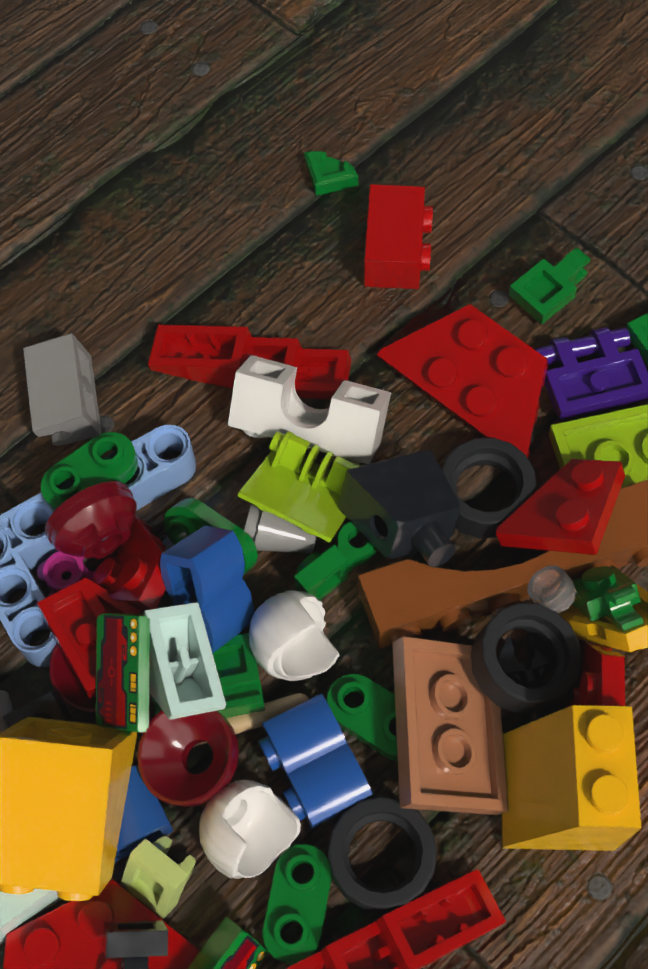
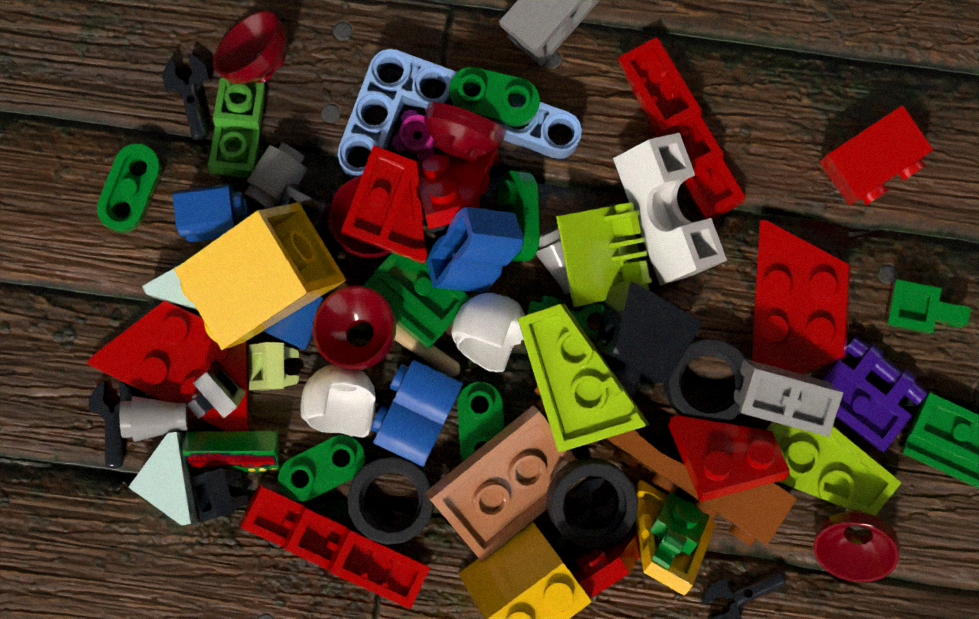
camera: 45 degrees right, 20 degrees up
(122, 671) = (370, 246): slope -> none
(182, 662) = (404, 279): light aqua slope -> none
(329, 173) = (903, 53): green tile -> none
(403, 583) = (575, 382): none -> lime wing
(551, 419) = (788, 398): none -> light grey hinge
(552, 588) = (657, 486): clear hinge -> none

